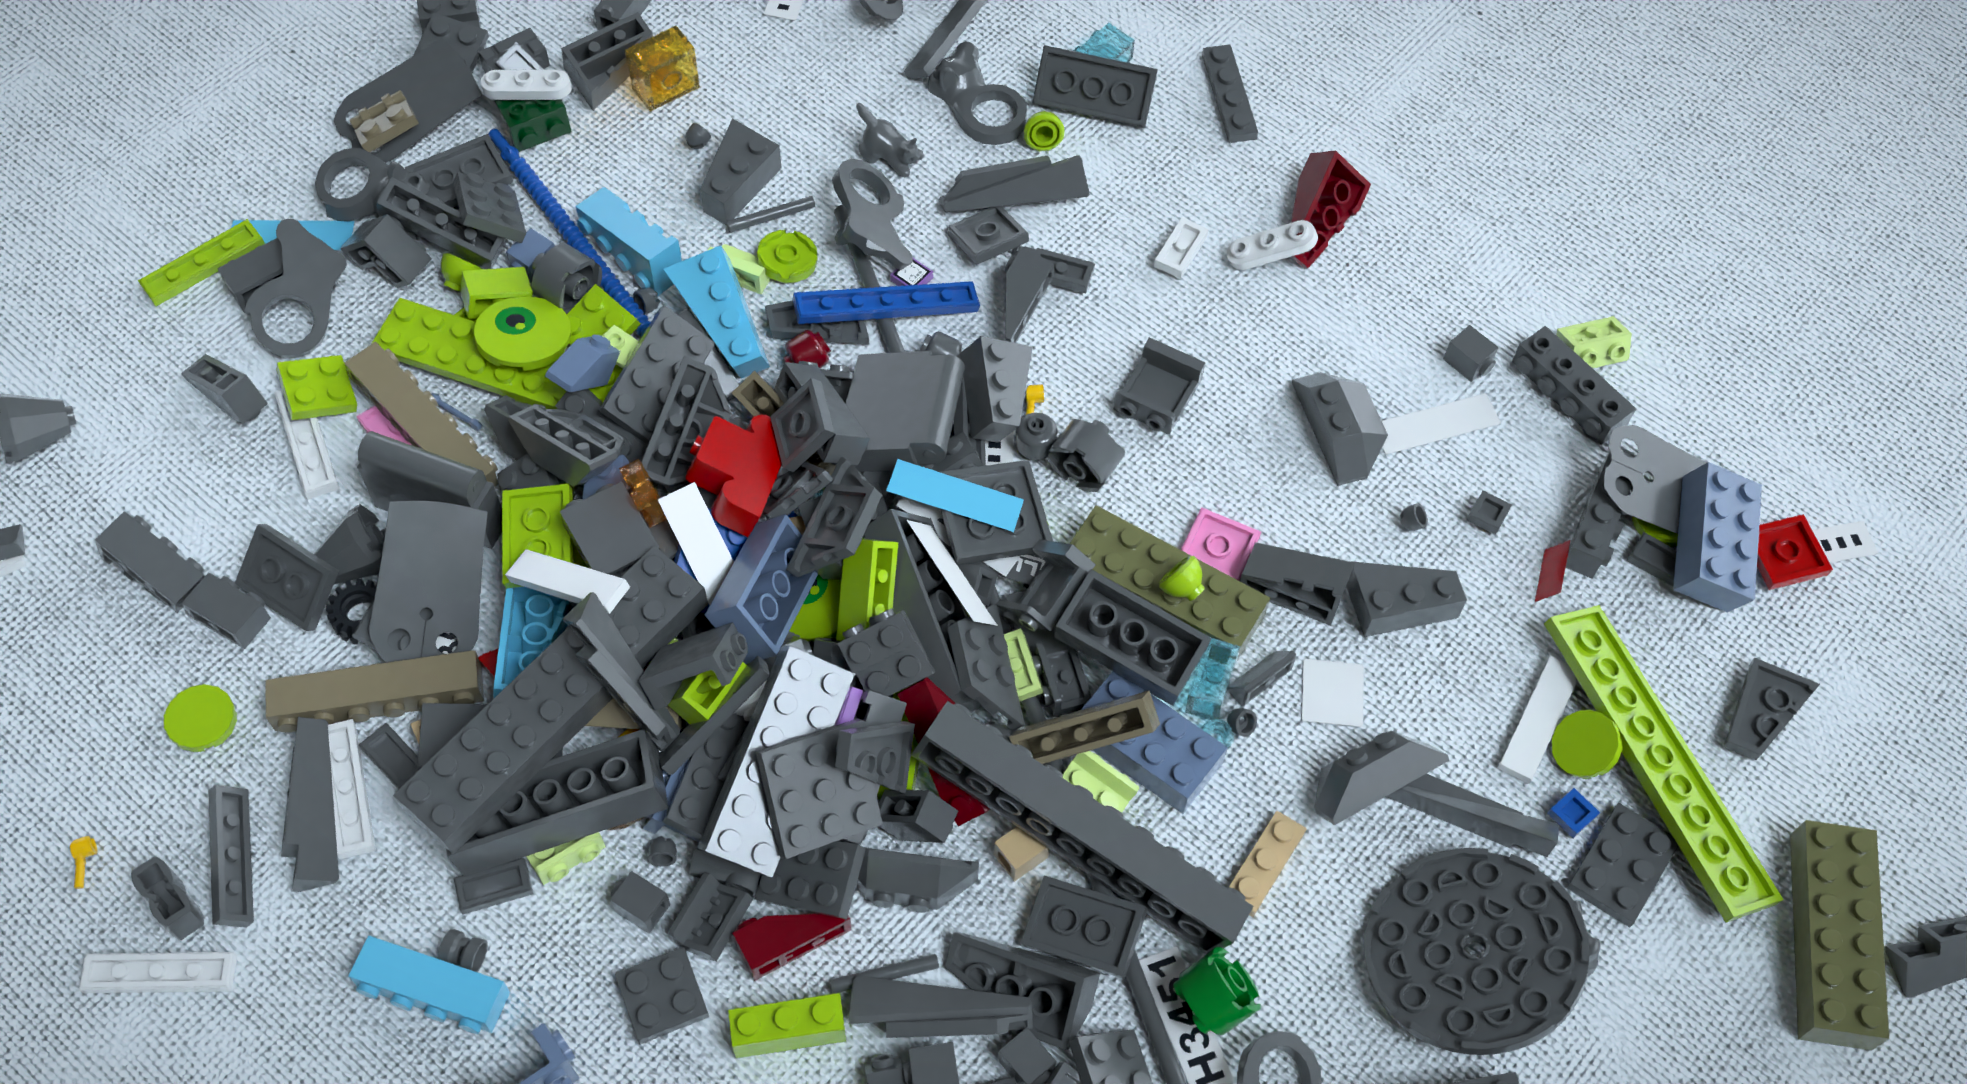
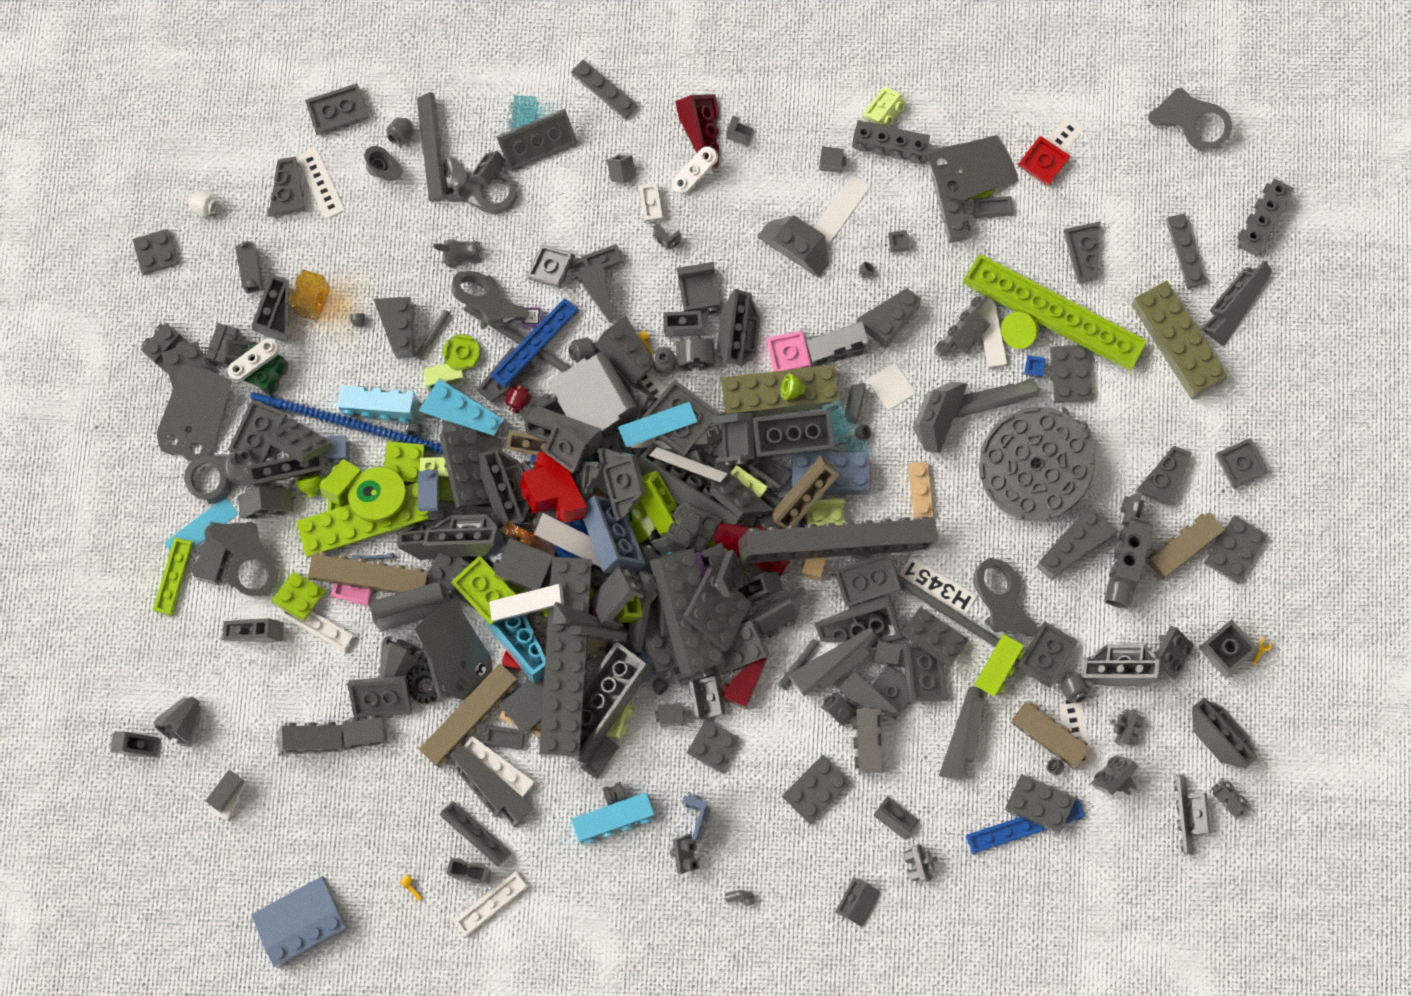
camera: 30 degrees left, 15 degrees up
(200, 718) = (399, 788): lime tile -> none
(383, 121) = (199, 435): dark tan plate -> none
(564, 276) = (369, 449): dark grey brick -> none
(787, 1025) = (778, 717): lime brick -> none
(1006, 80) = (487, 168): none -> dark grey slope
(1016, 184) = (543, 227): dark grey wedge -> none
(1043, 131) = (530, 184): lime brick -> none
(1096, 401) = (682, 323): none -> dark grey brick
(1168, 306) = (662, 237): none -> dark grey bracket
(1174, 467) = (738, 328): none -> dark grey wedge
(1176, 186) = (621, 168): none -> dark grey panel
(1217, 992) = (945, 565): green brick -> none
(1365, 245) = (738, 132): none -> dark grey panel
(1505, 692) = (967, 330): none -> dark grey bracket
(1552, 571) = (947, 251): red sticker -> none
(1718, 537) = (1010, 179): sand blue brick -> none
(1932, 818) = (1186, 251): none -> dark grey plate

